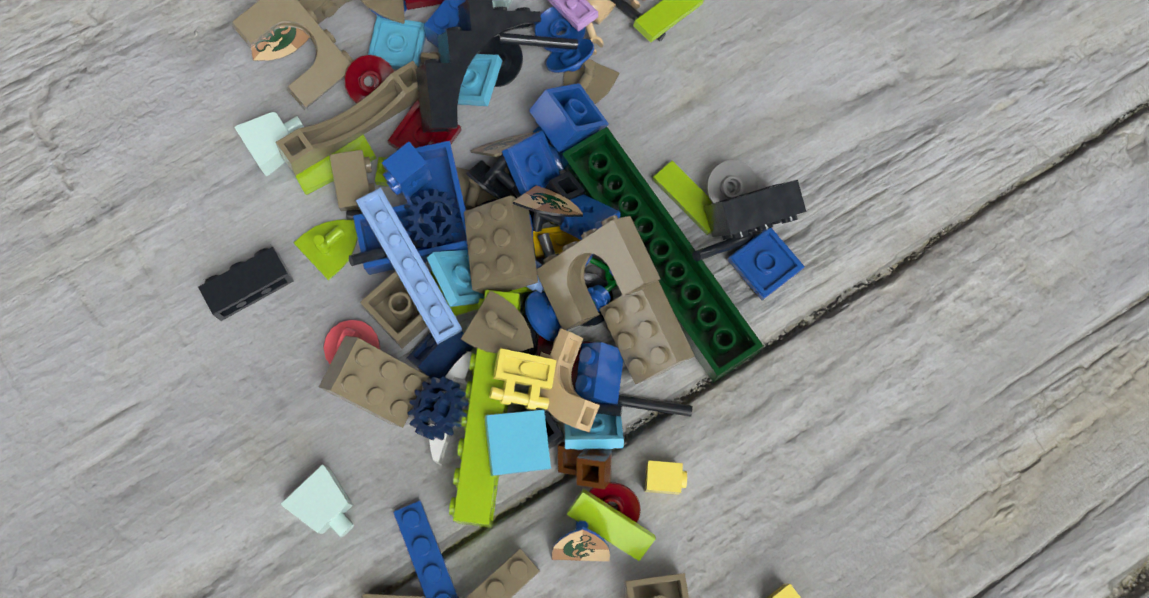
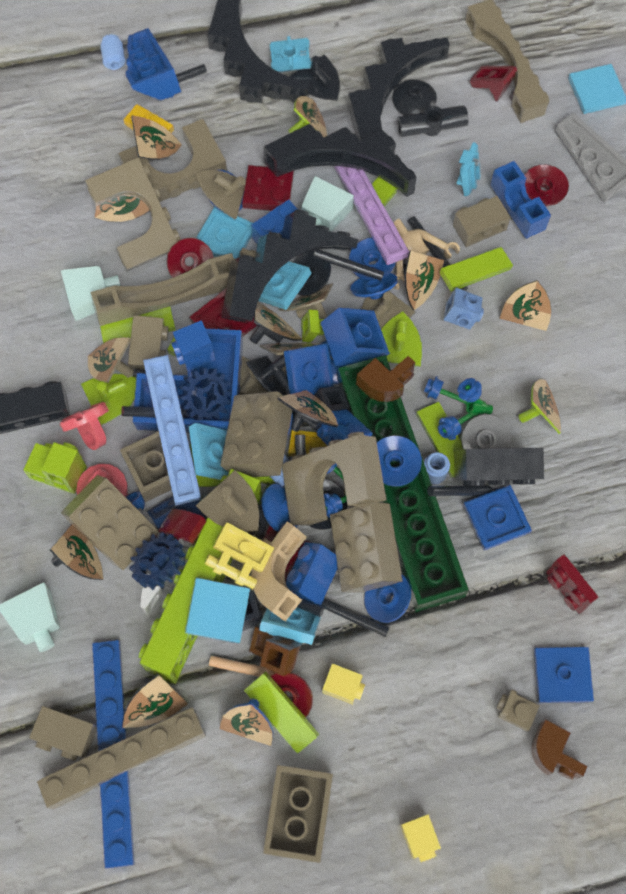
camera: 20 degrees right, 5 degrees down
(295, 337) = (56, 465): none -> lime brick
(315, 208) = (107, 358): none -> shield
(316, 284) = (88, 425): none -> coral tile
(348, 425) = (77, 554): none -> shield
(392, 349) = (136, 500): none -> blue hinge
(452, 363) = (182, 525): none -> dark red slope
(476, 555) = (152, 703): none -> shield
(478, 128) = (271, 326): none -> shield
(511, 93) = (312, 302): none -> shield
(518, 116) = (311, 326): none -> lime tile
(552, 490) = (238, 666): none -> light nougat bar
(614, 157) = (385, 384): none -> reddish brown brick
(616, 35) = (421, 277): none -> shield
(616, 106) = (402, 340): none -> lime shield
(662, 226) = (403, 451): none -> blue dish
(669, 57) = (463, 309): none -> medium blue brick
(677, 388) = (379, 604): none -> blue dish
(693, 228) = (437, 467): none -> light blue brick
(705, 146) = (469, 394): none -> blue plant
(734, 37) = (528, 306): none -> shield
(775, 135) = (542, 404): none -> shield
(843, 451) = (517, 710): none -> dark tan bracket
(862, 311) = (573, 586): none -> dark red plate
(877, 403) = (563, 675): none -> blue plate
(886, 484) = (548, 749): none -> reddish brown brick

